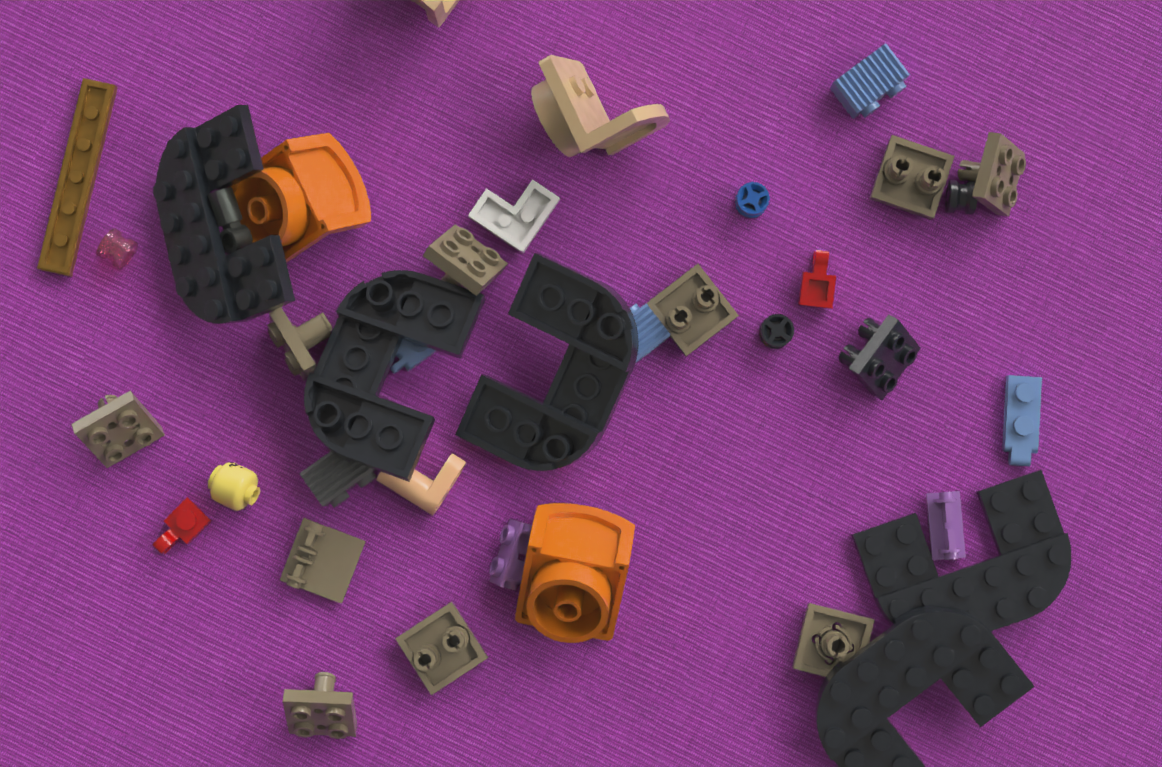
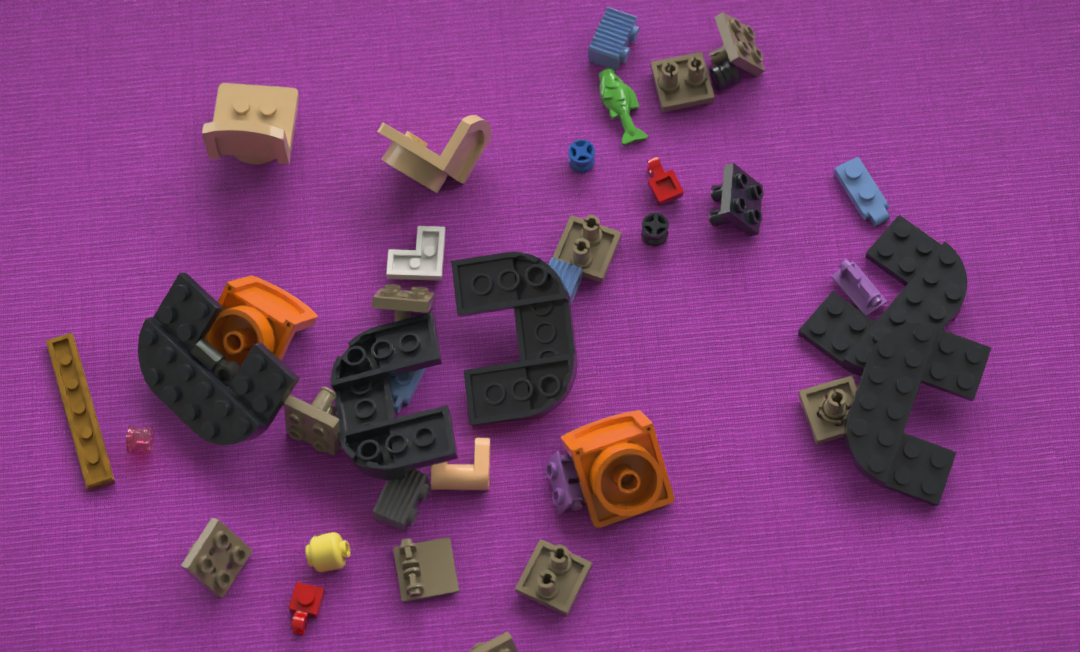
camera: 30 degrees left, 20 degrees down
(831, 158) = (619, 101): none -> bright green animal

